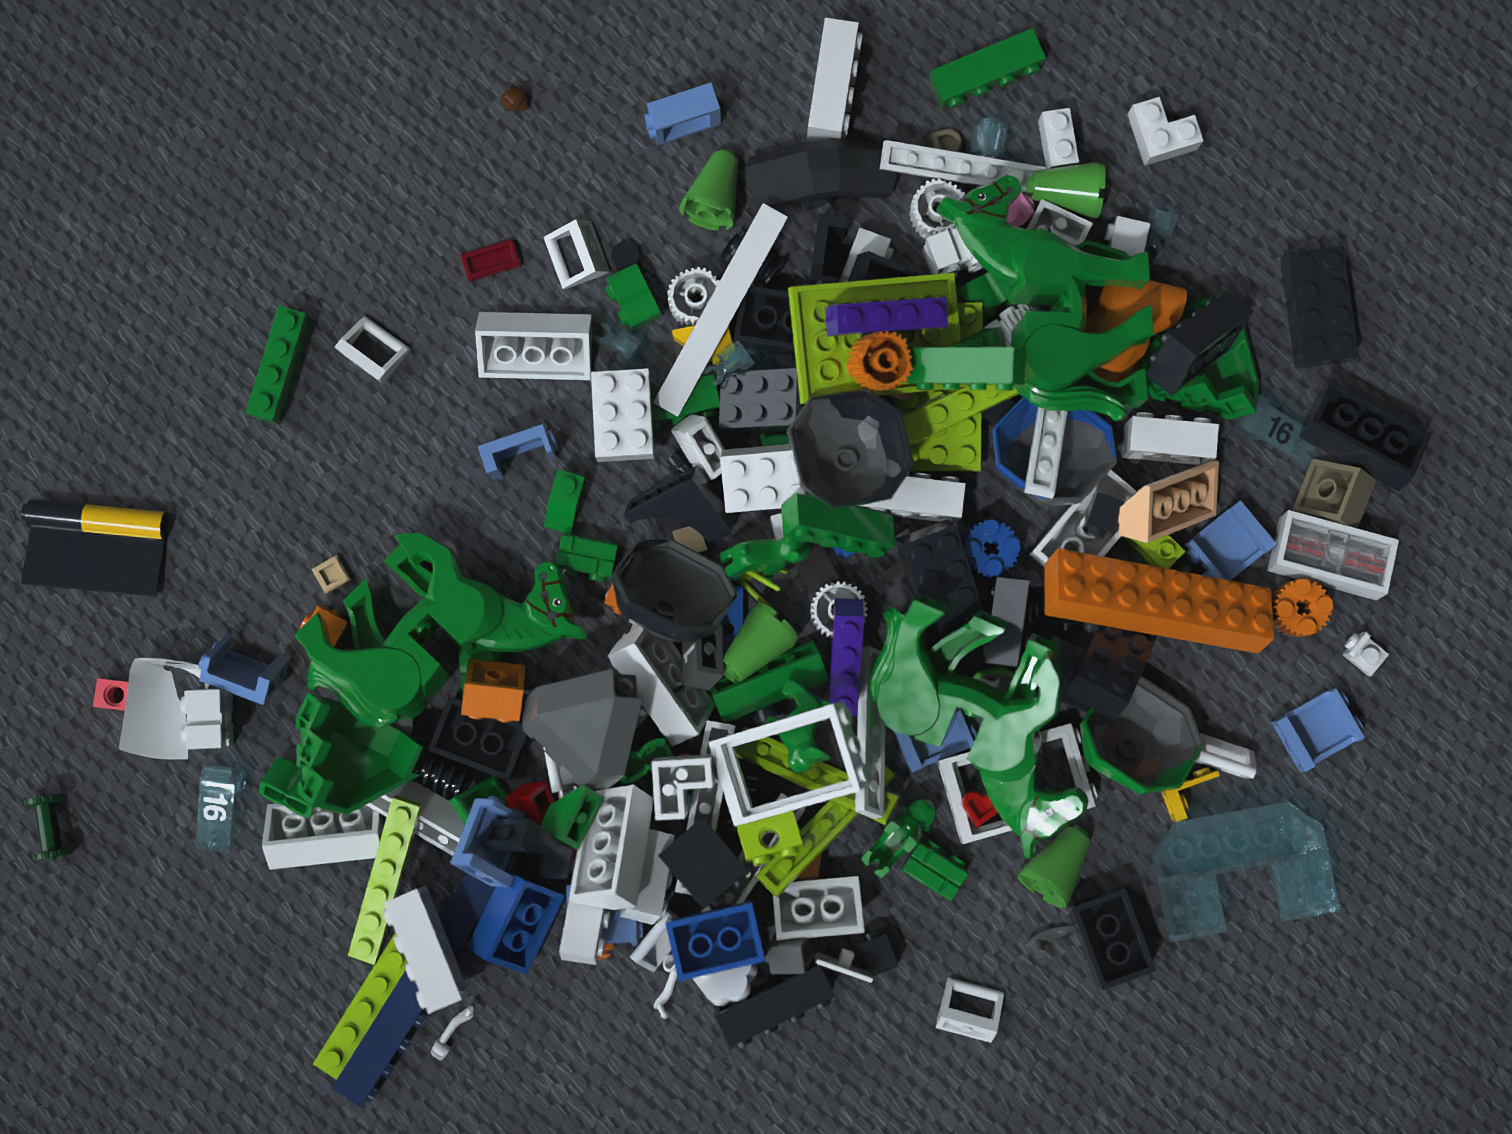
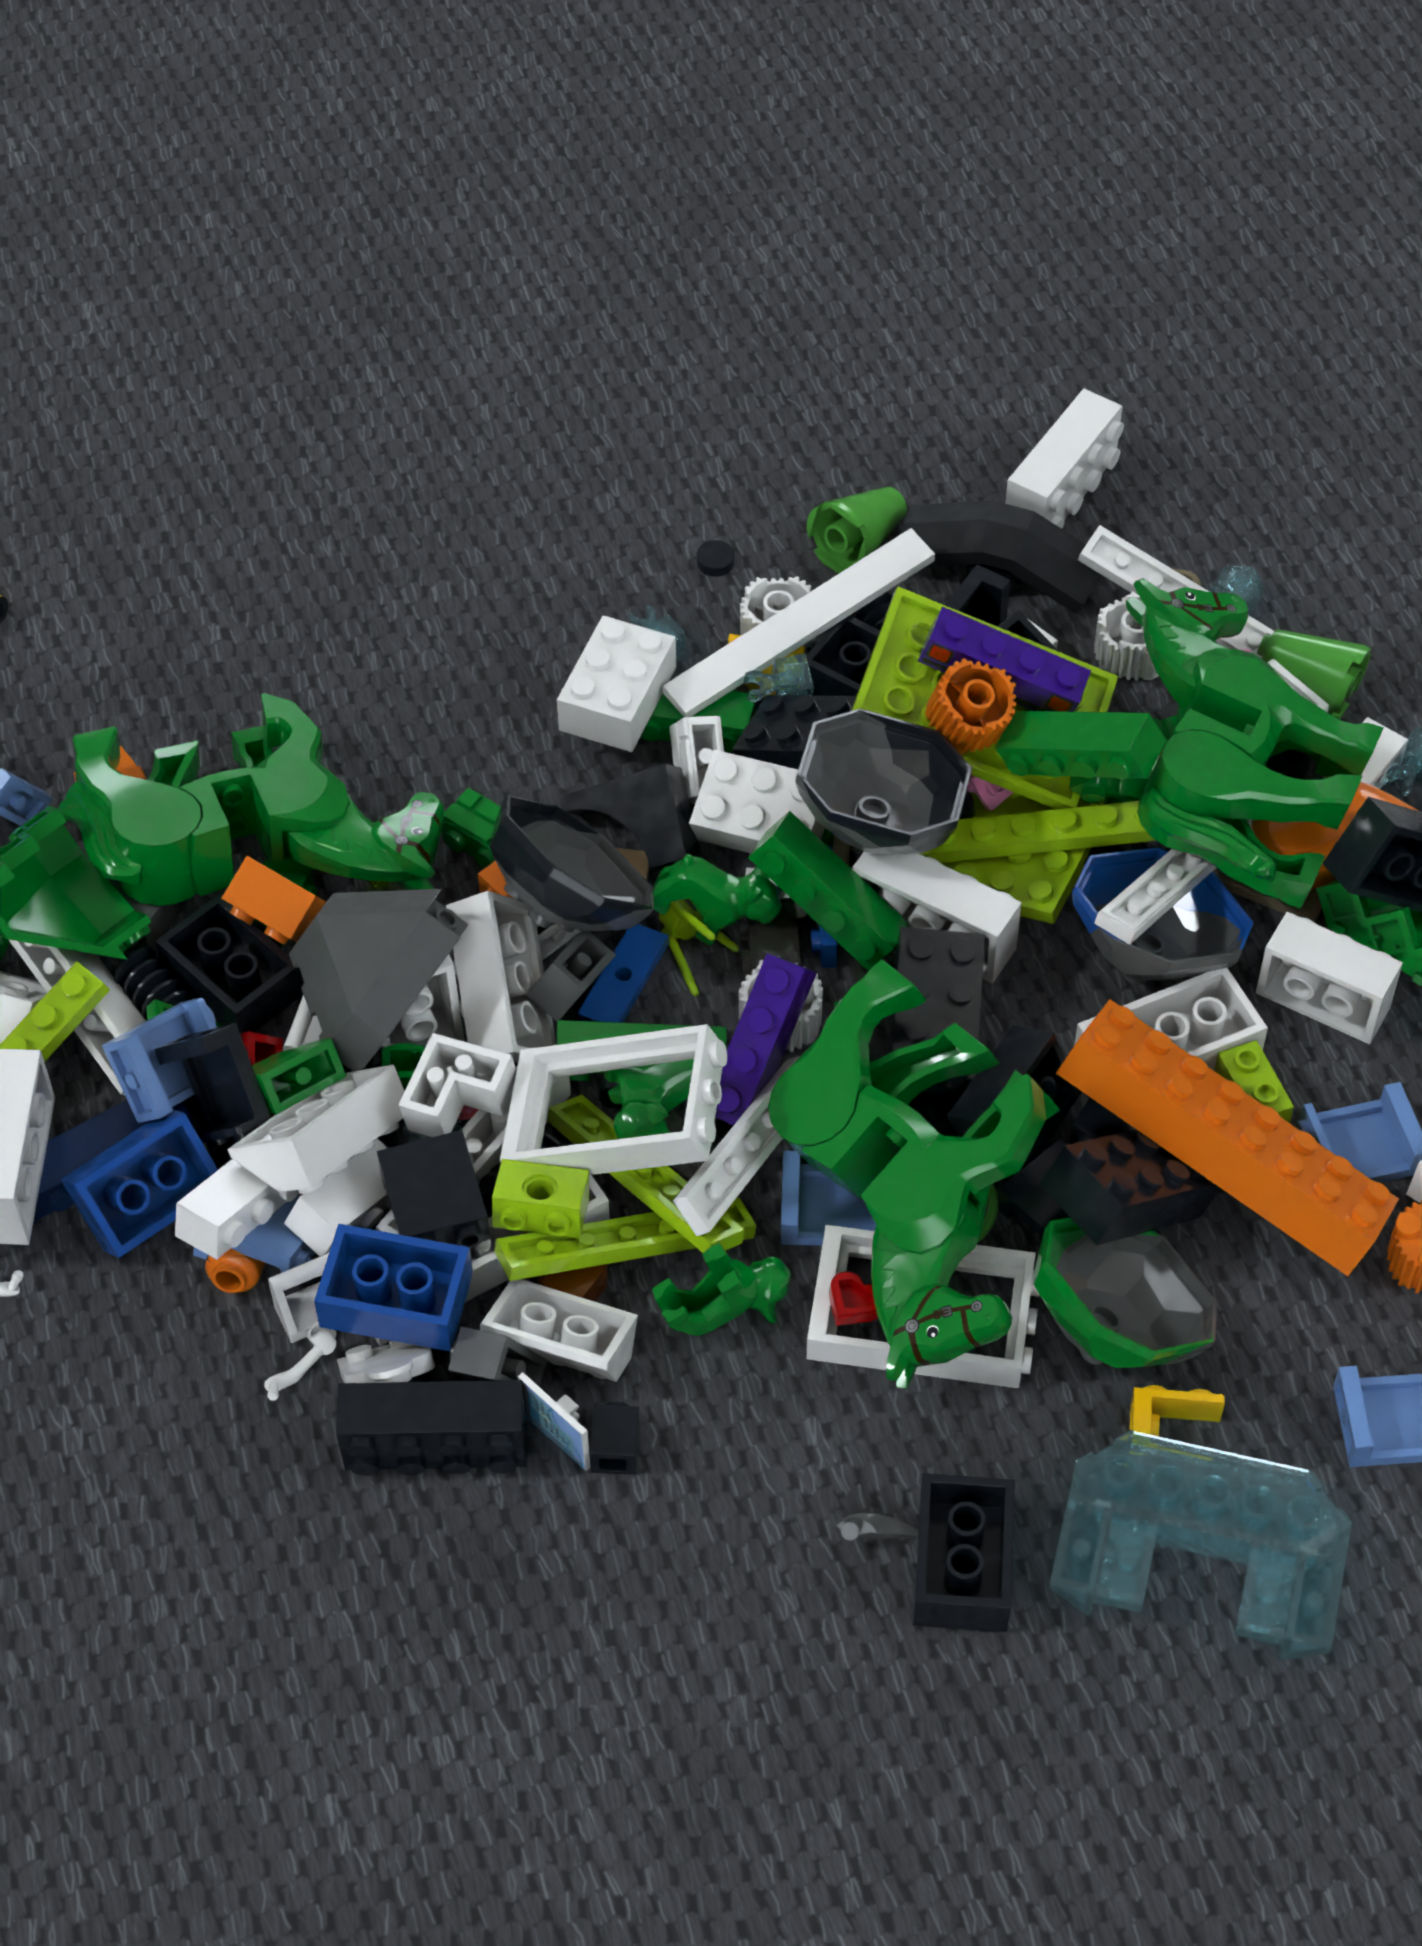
camera: 25 degrees right, 30 degrees down
(278, 365) = (234, 510): green brick -> none
(331, 574) = (156, 736): tan tile -> none
(381, 374) = (352, 560): white tile -> none
(490, 260) = (550, 507): dark red tile -> none
(515, 99) = (670, 367): reddish brown plate -> none
(515, 444) = (466, 678): medium blue panel -> none
(534, 345) = (545, 596): white slope -> none
(564, 501) = (496, 760): green slope -> none
(587, 248) = (673, 533): white tile -> none
(633, 297) = (701, 596): green brick -> none
(683, 114) = (863, 416): medium blue window -> none
(757, 643) = (652, 990): bright green cone -> none
(935, 870) = (751, 1367): green brick -> none
(948, 254) = (1138, 684): white brick -> none
(967, 1023) = (697, 1584): white tile -> none
(987, 69) = (1267, 527): green brick -> none
(1006, 548) = (1021, 1001): blue brick -> none
(1057, 866) = (926, 1428): bright green cone -> none
(1058, 138) = (1328, 609): white brick -> none
(1102, 515) = (1194, 1006): black brick -> none
(1171, 504) = (1297, 1019): light nougat slope -> none
(1227, 757) = (1246, 1399): white tile -> none

